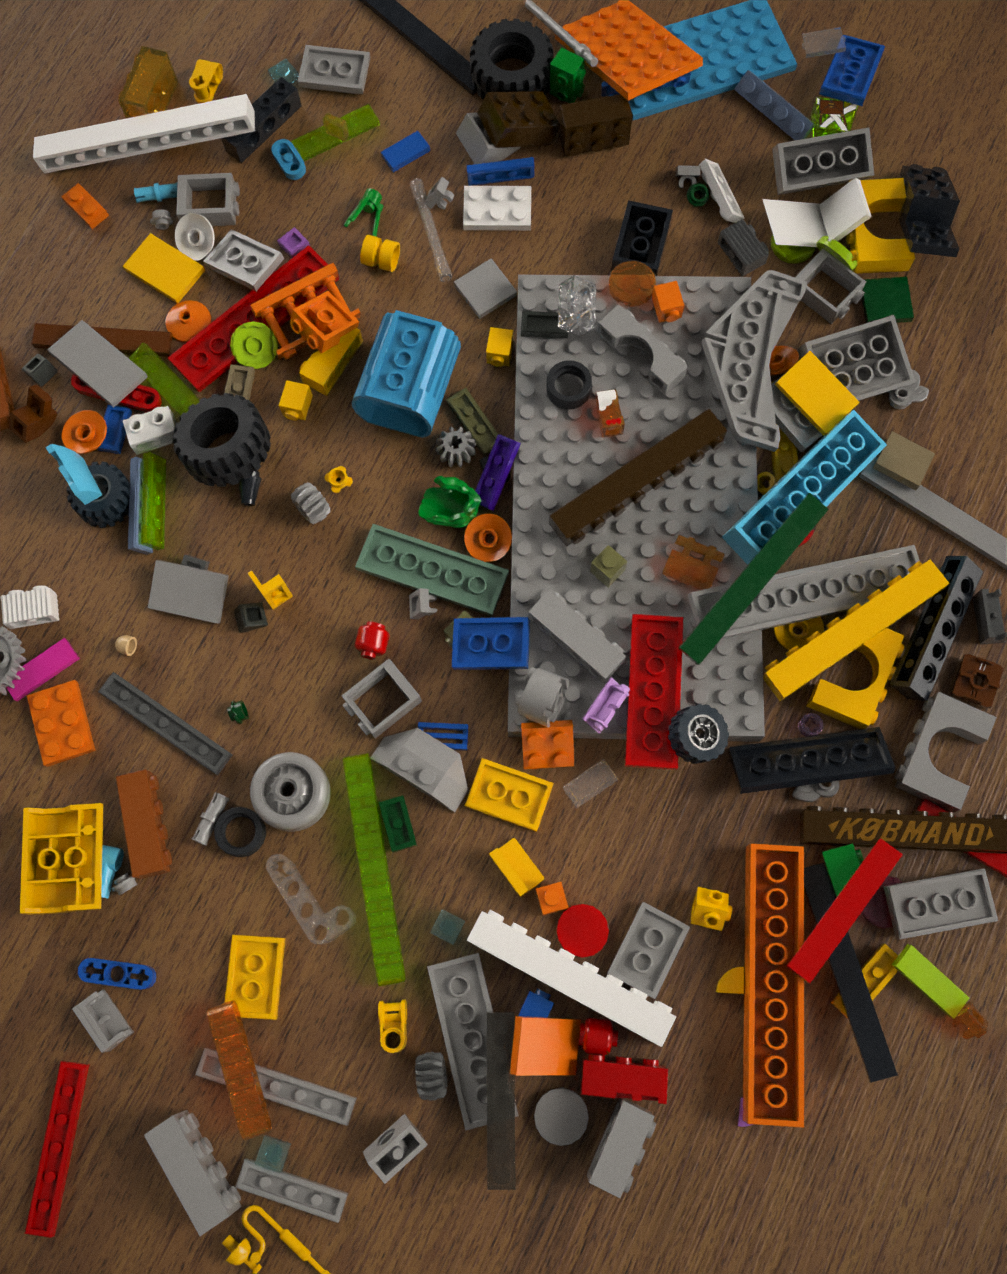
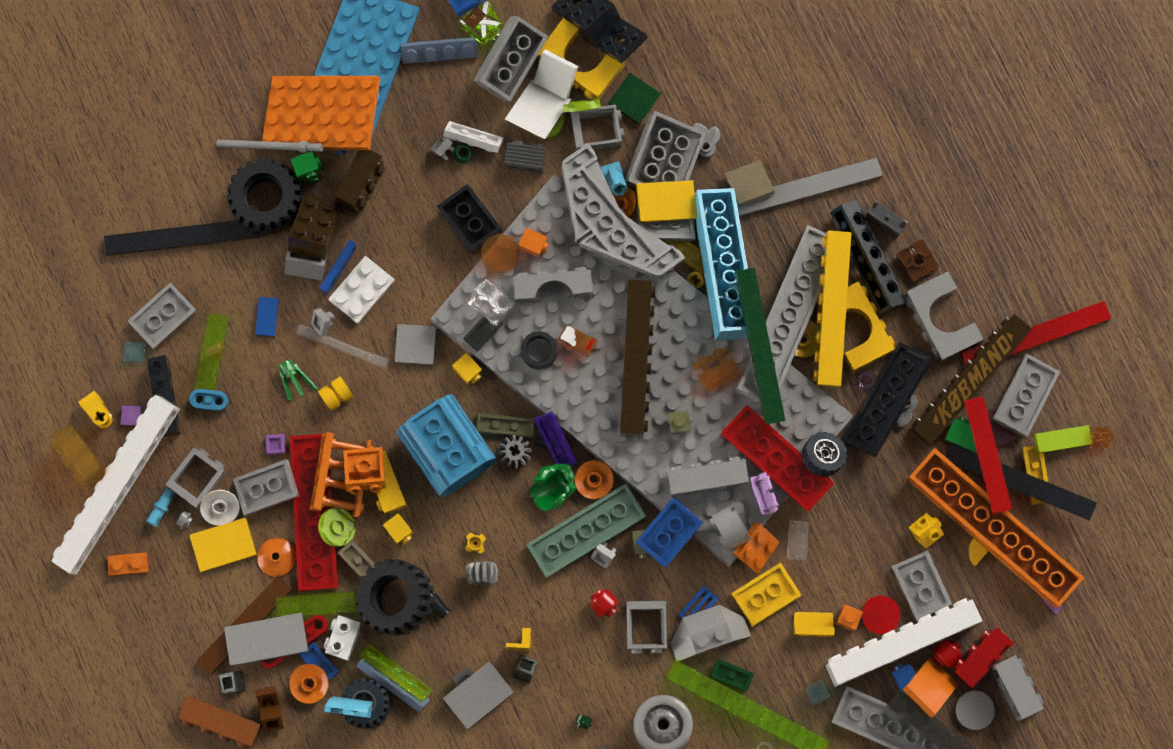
camera: 55 degrees left, 5 degrees up
(795, 335) = (614, 178): none -> medium azure piece

